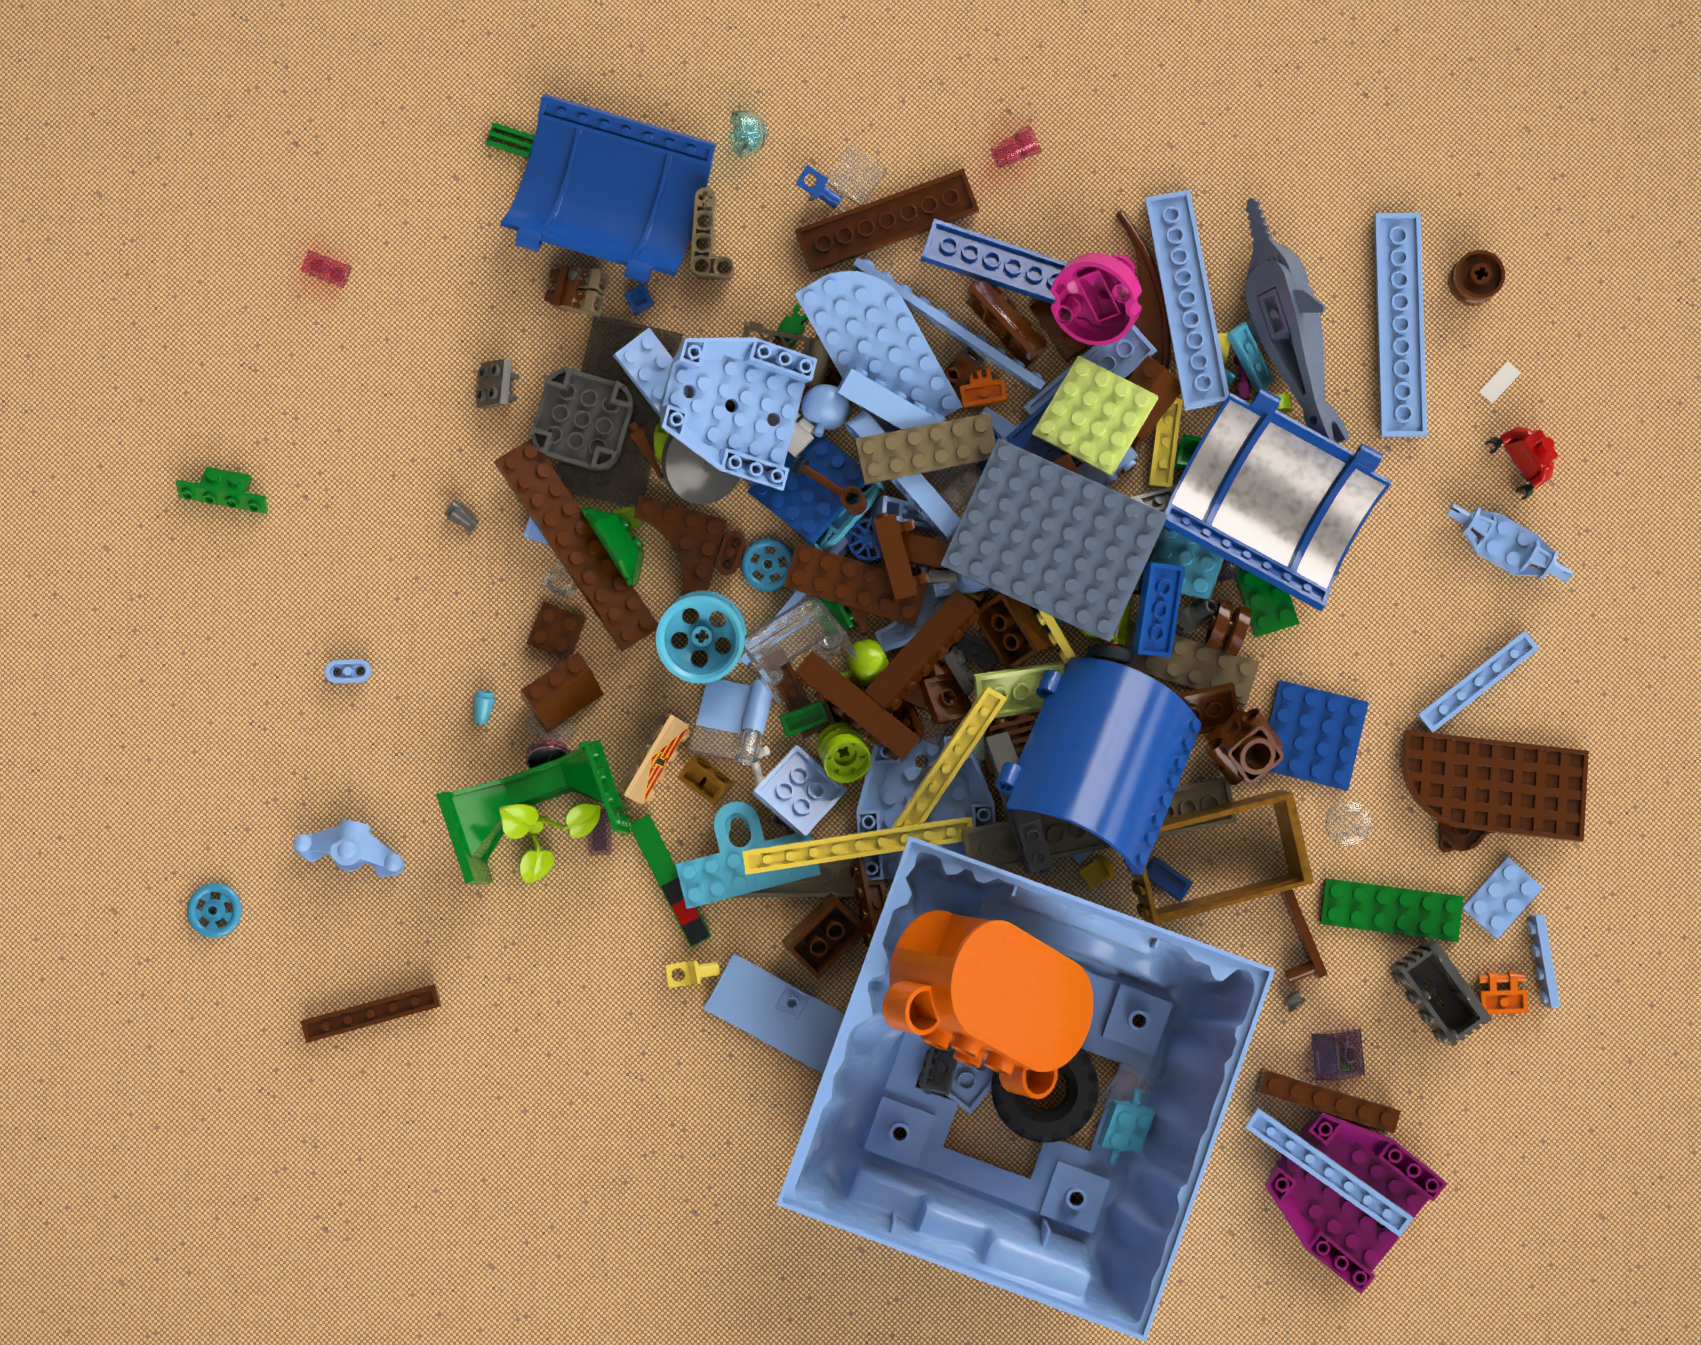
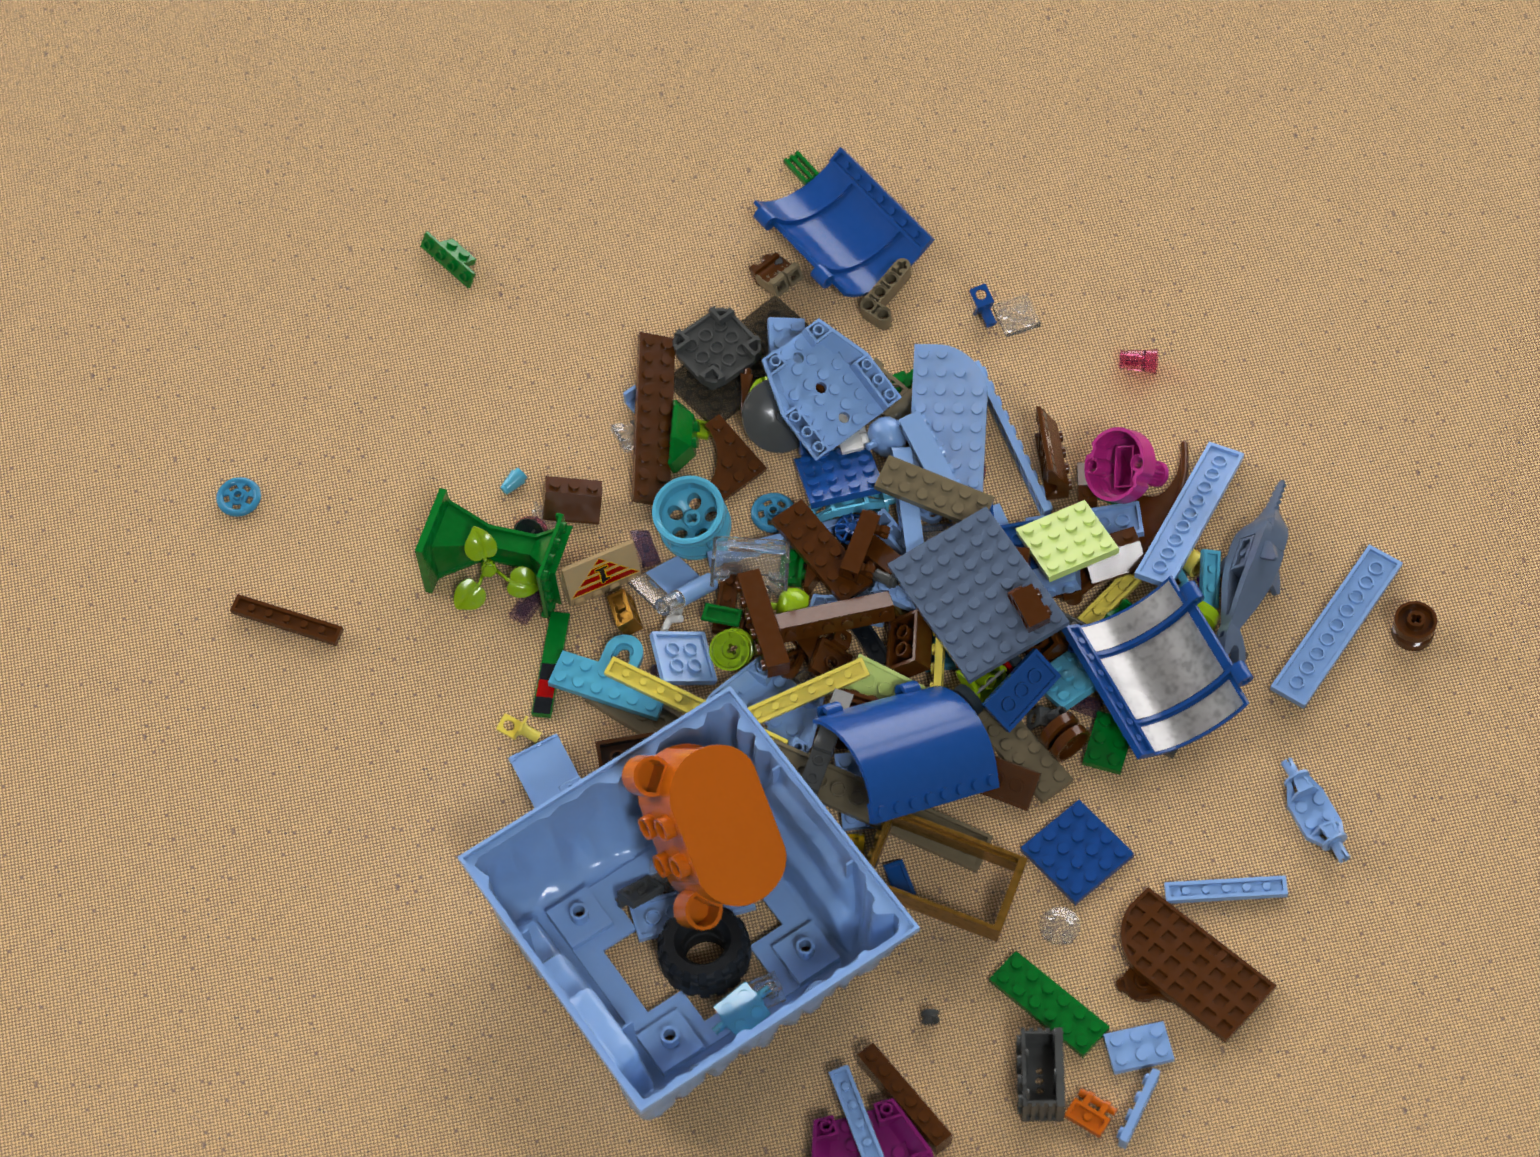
camera: 35 degrees right, 25 degrees down
(326, 269) = (622, 171): clear pink plate -> none
(349, 671) = (444, 409): light blue plate -> none
(349, 847) = (358, 510): light blue piece -> none
(461, 515) = (592, 361): dark grey cone -> none
(495, 384) = (677, 292): dark grey plate -> none
(556, 631) = (599, 465): reddish brown plate -> none
(639, 299) = (812, 304): blue plate -> none
(669, 690) = (645, 548): none -> clear purple slope
(730, 553) = (752, 490): reddish brown plate -> none
(748, 132) = (963, 248): clear light blue cylinder -> none
(800, 467) = (857, 487): reddish brown piece -> none
(886, 220) = (1021, 354): reddish brown plate -> none
(956, 662) = (854, 644): dark grey plate -> none
(962, 366) = (1000, 468): reddish brown bracket -> none
(982, 391) = (1005, 492): orange hinge -> none
(992, 260) = (1064, 408): plate -> none
(1125, 529) = (1030, 607): none -> reddish brown hinge
(1244, 747) = (1000, 826): reddish brown piece -> none
(1314, 964) = (963, 1002): reddish brown piece -> none
(1338, 1054) = (936, 1073): clear purple slope -> none
(1500, 382) = (1386, 708): white sticker -> none
(1531, 453) = (1373, 761): red torso -> none

